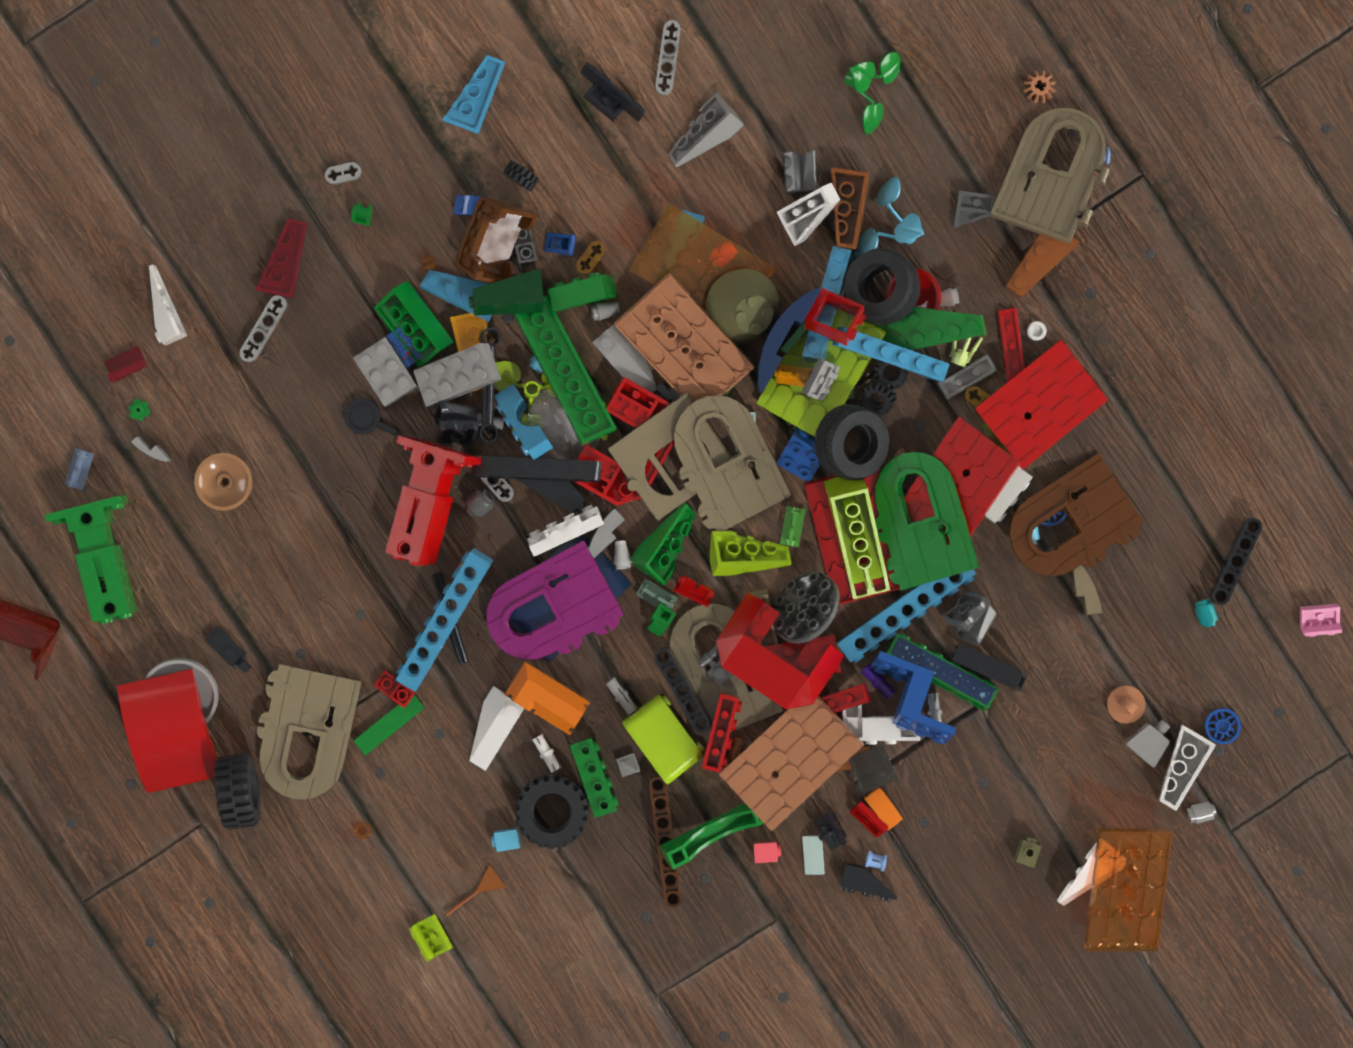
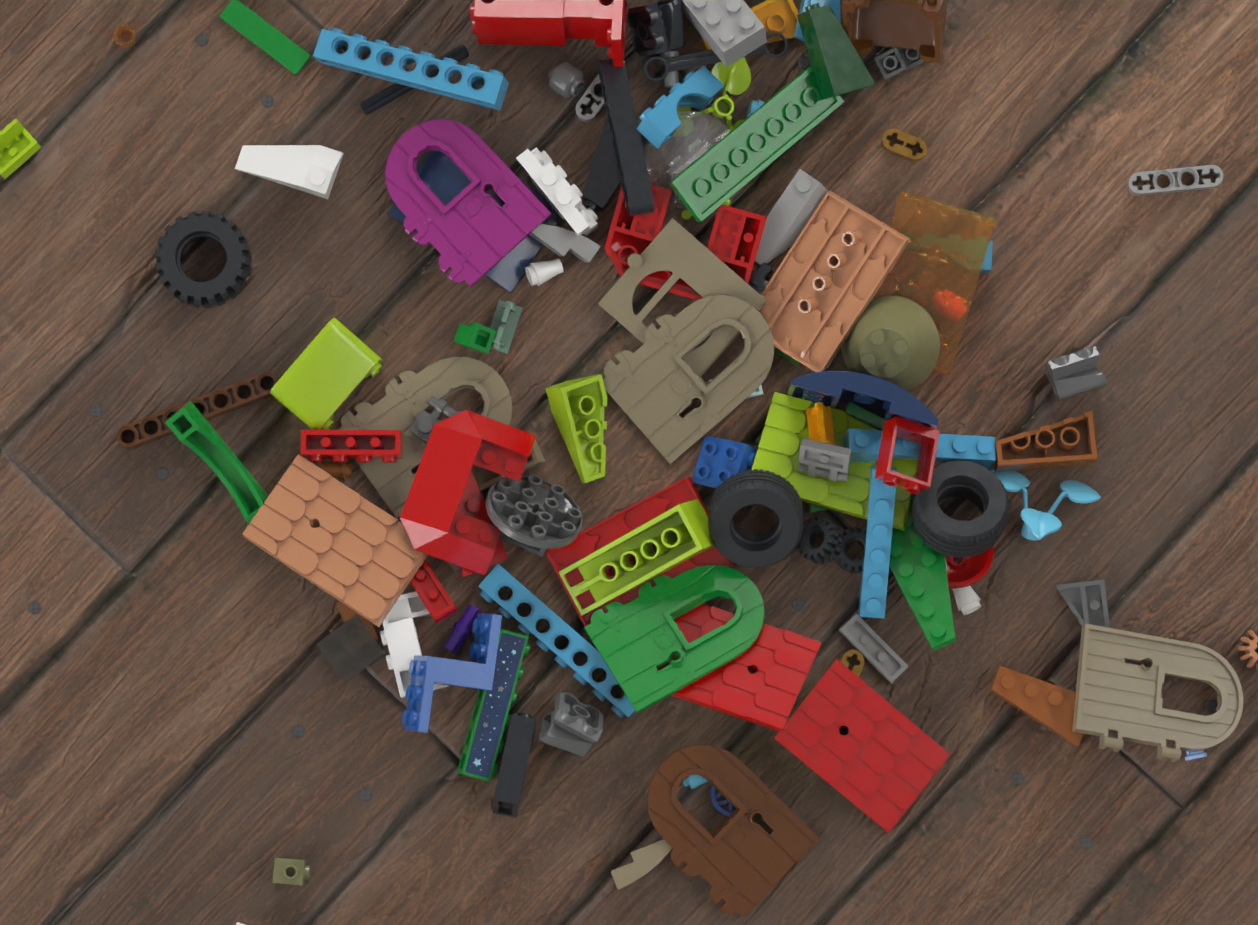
camera: 75 degrees right, 5 degrees down
(394, 689) = (309, 31): red slope -> none
(489, 882) = (96, 206): dark orange piece -> none
(506, 839) = (154, 213): medium azure brick -> none
(521, 175) = (983, 33): black tyre -> none
(546, 753) = (274, 238): white pin -> none
(548, 697) = (344, 220): orange brick -> none
(560, 244) = (911, 104): blue slope -> none
(582, 291) = (859, 143): green wedge -> none
(593, 777) = (258, 302): green brick -> none
(604, 310) = (843, 176): light grey cone -> none
(608, 97) = (1107, 118): black bracket -> none
(621, 696) = (367, 312): light grey pin -> none
(628, 764) = (283, 342): light grey tile -> none
(659, 550) = (563, 317): green wedge -> none
(683, 699) = (398, 373): black beam -> none
(689, 589) = (521, 364): red hinge -> none
(711, 128) = (1105, 256): light grey wedge -> none
(766, 851) = (214, 540): coral brick -> none
(792, 526) = (631, 475): bright green hinge -> none
(808, 212) = (1028, 395): white wedge -> none
(813, 855) = (224, 601): light aqua slope -> none
(830, 831) = (258, 613): black hips -> none
(860, 78) = (1210, 417): green plant -> none
(860, 879) = (207, 667): black slope -> none
(868, 819) = (285, 659): red tile -> none
(880, 865) = (238, 673): light blue bush -> none
(883, 807) = (303, 674): orange slope -> none
(934, 707) = (447, 707): light grey pin -> none
(960, 357) = (897, 631): yellowish green plant -> none
(1008, 496) = (738, 732): white wedge -> none
(1011, 342) = (933, 692): red tile -> none
(1036, 331) = (952, 721): white tile -> none

